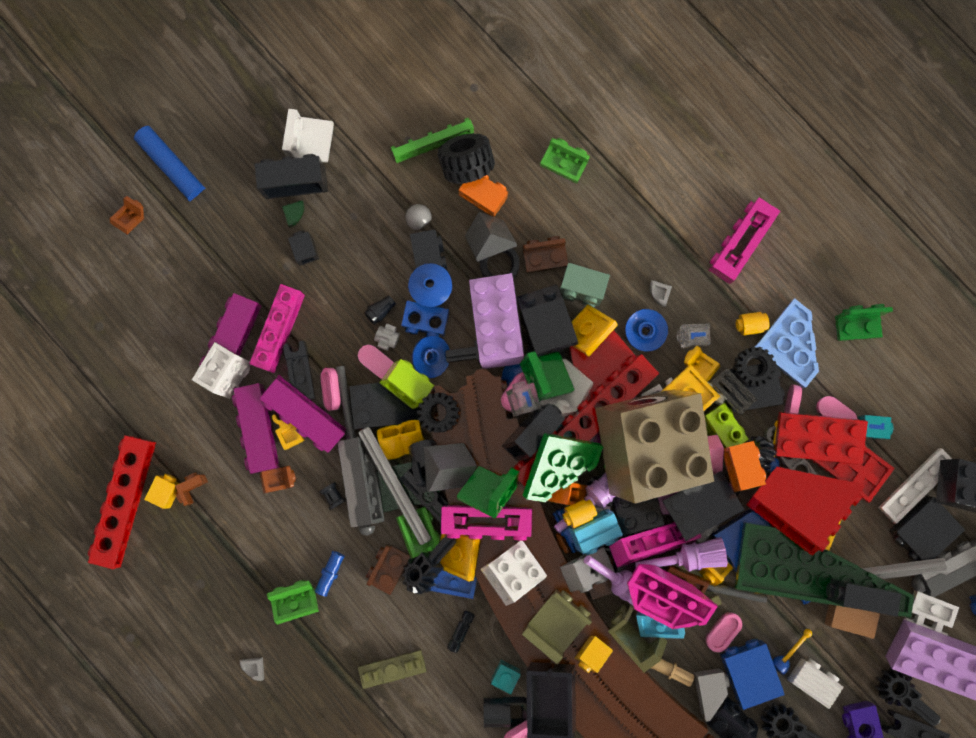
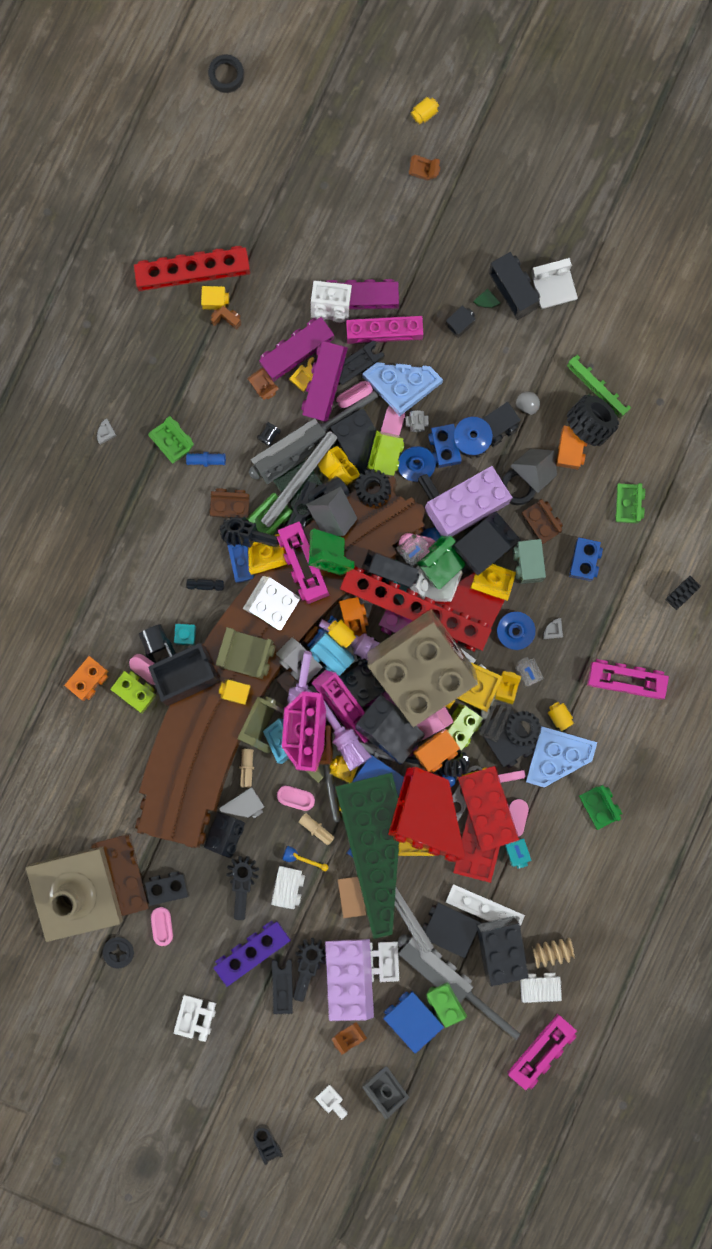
camera: 65 degrees right, 0 degrees up
(69, 189) = (425, 110): none -> yellow brick
(168, 162) = (483, 180): blue brick -> none
(341, 336) = (402, 384): none -> light blue plate
(378, 311) = (436, 405): black cone -> none
(392, 669) = (151, 542): olive plate -> none
(559, 465) = (373, 598): plate -> none
(599, 234) = (580, 558): none -> blue brick
(679, 146) = (683, 592): none -> black tyre
(752, 673) = (272, 832): blue brick -> none
(765, 625) = (316, 829): none -> tan axle
(863, 597) = (372, 885): black brick -> none

